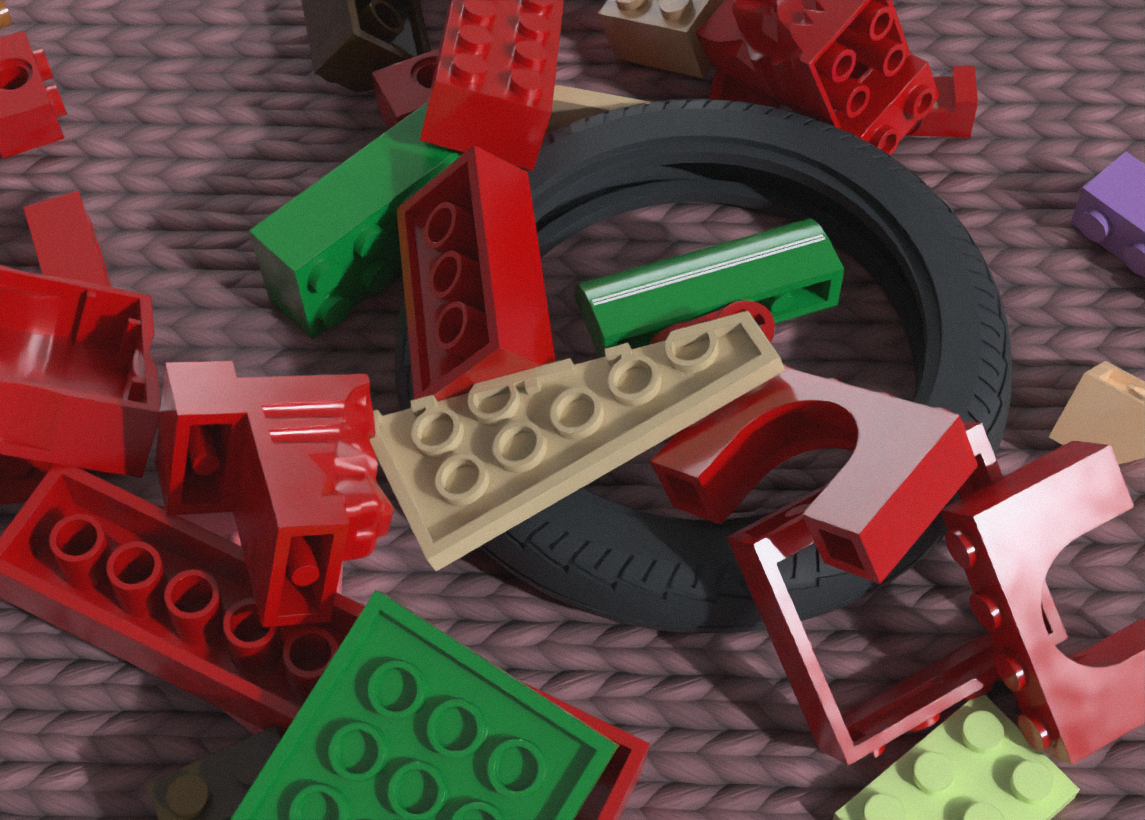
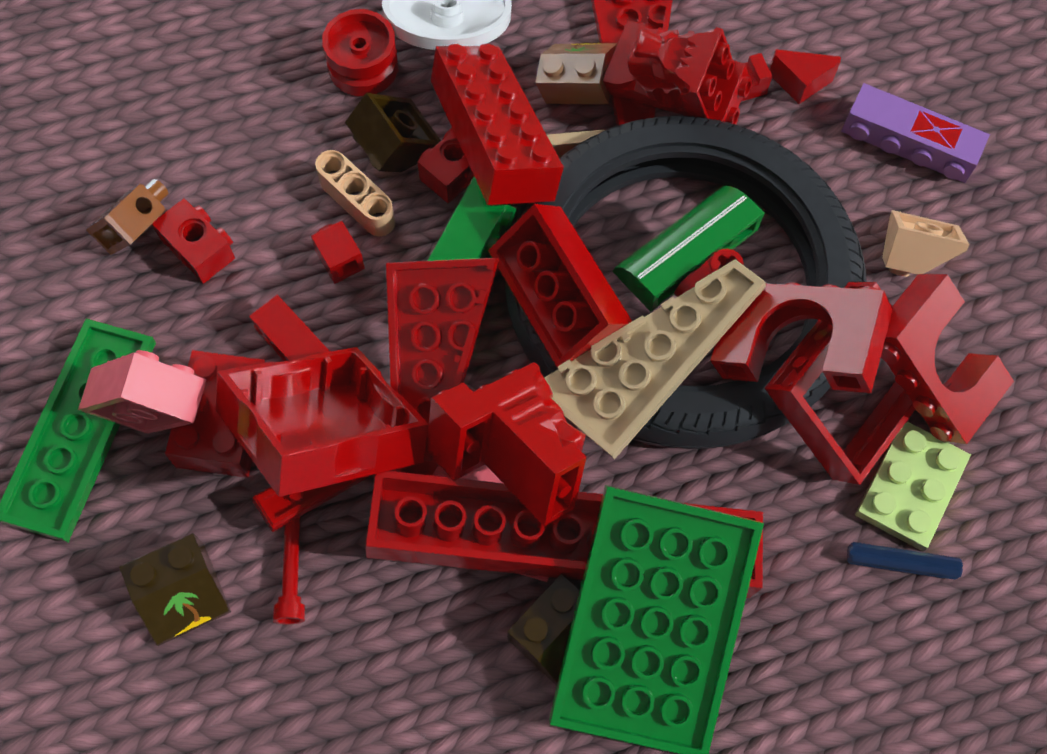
camera: 25 degrees left, 10 degrees up
(201, 165) = (337, 251): none -> red brick
(259, 280) = (434, 328): none -> red wing
(269, 96) = (350, 180): none -> light nougat beam
(1039, 117) = (802, 72): none -> red slope

